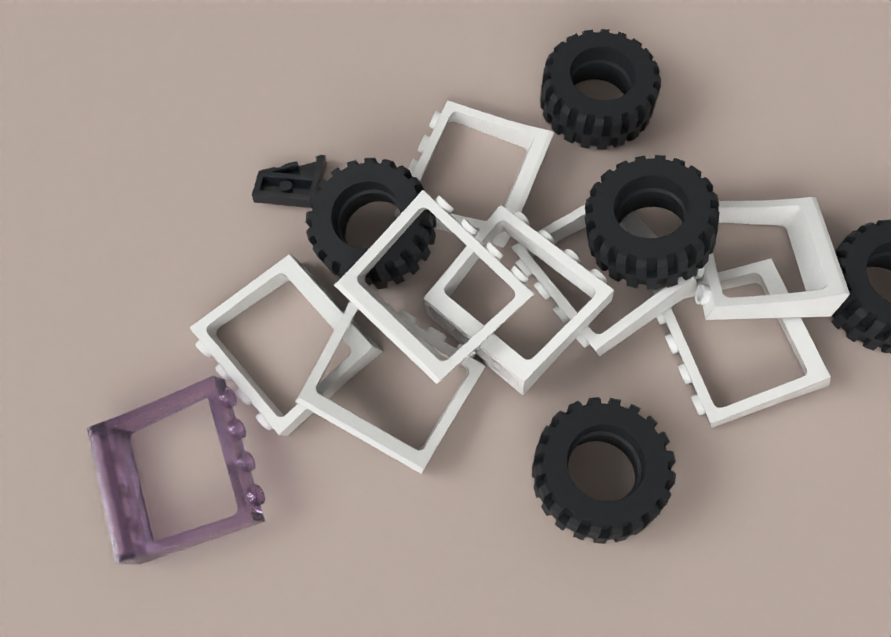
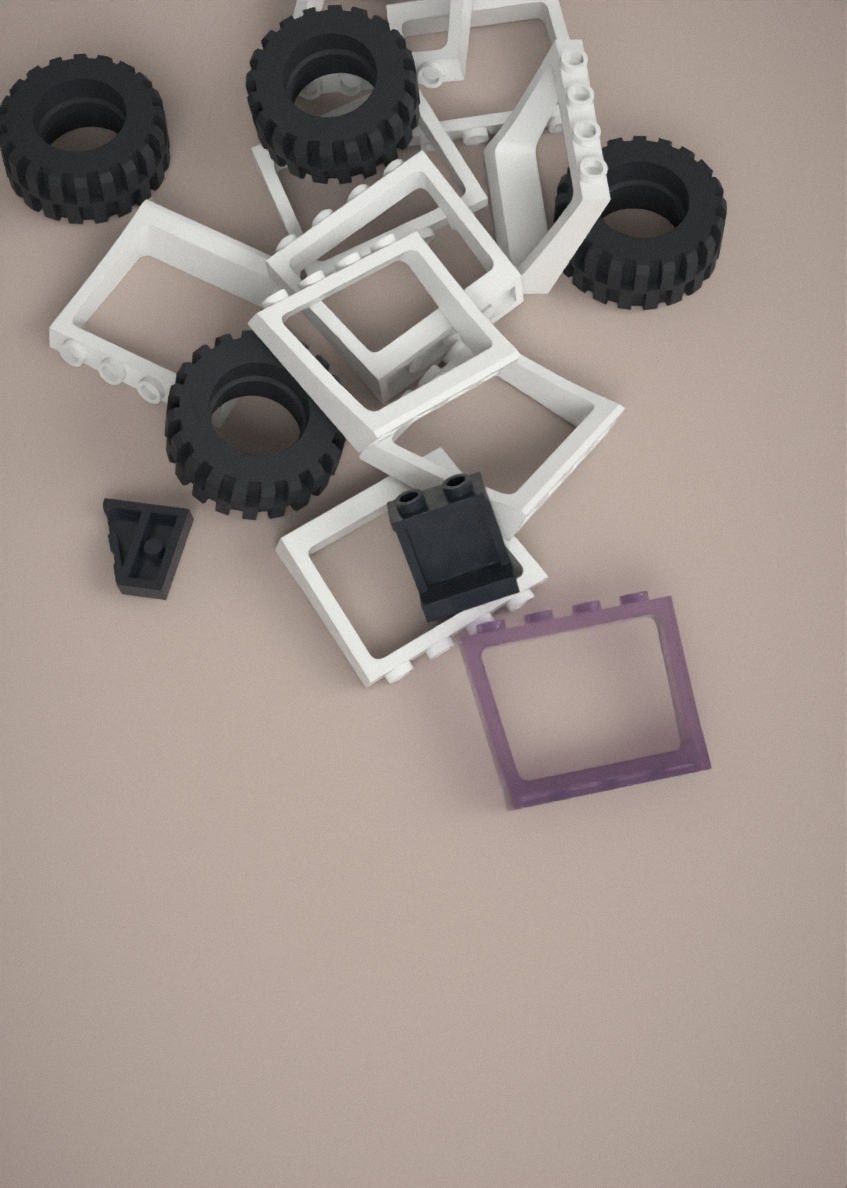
camera: 85 degrees left, 5 degrees down
(283, 366) = (453, 545): none -> black panel
(620, 383) = (514, 173): none -> white windscreen

